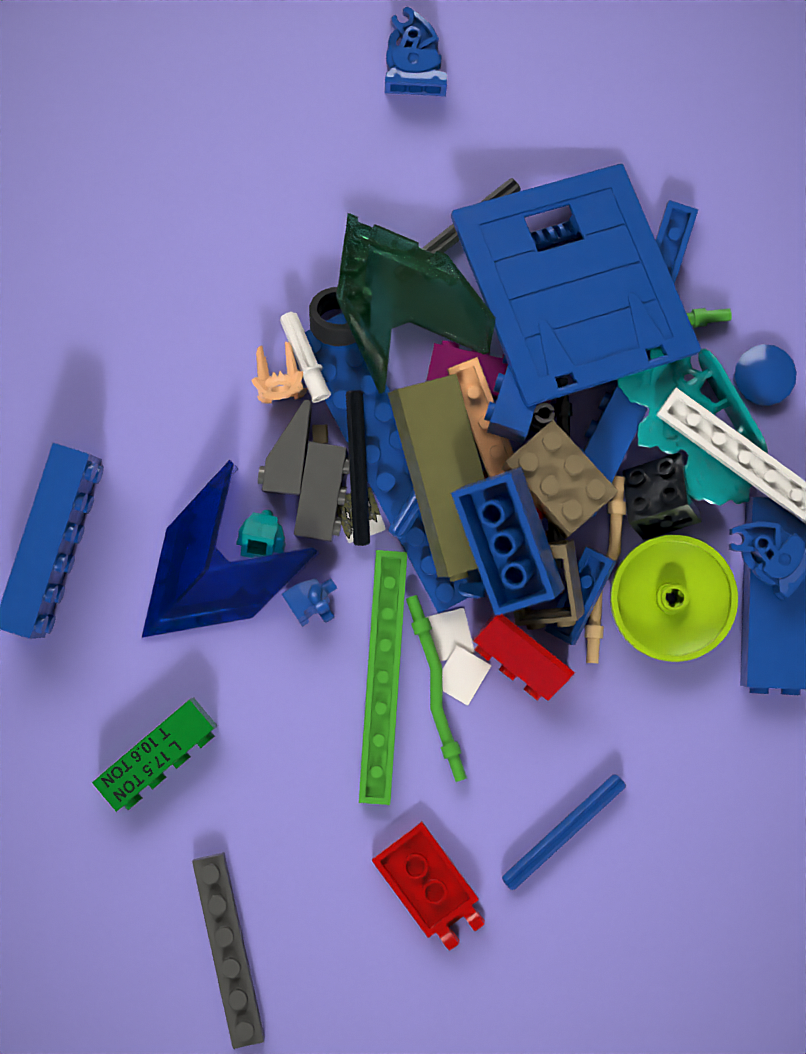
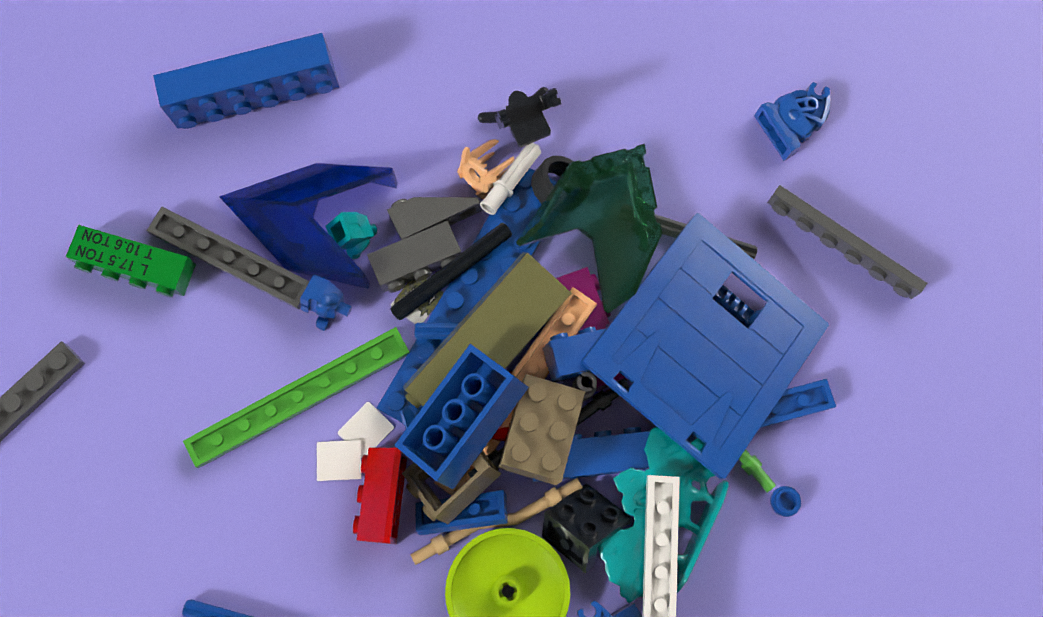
camera: 55 degrees right, 10 degrees down
(210, 662) = (228, 257): none -> dark grey plate
(252, 306) = (525, 115): none -> black piece
(320, 433) = (461, 230): dark tan piece -> none
(429, 884) = (147, 543): red tile -> none
(450, 748) = (271, 488): bright green bar -> none
(570, 92) = (854, 249): none -> dark grey plate
(748, 309) = (785, 501): none -> blue plate
(765, 375) = (742, 550): blue dish -> none

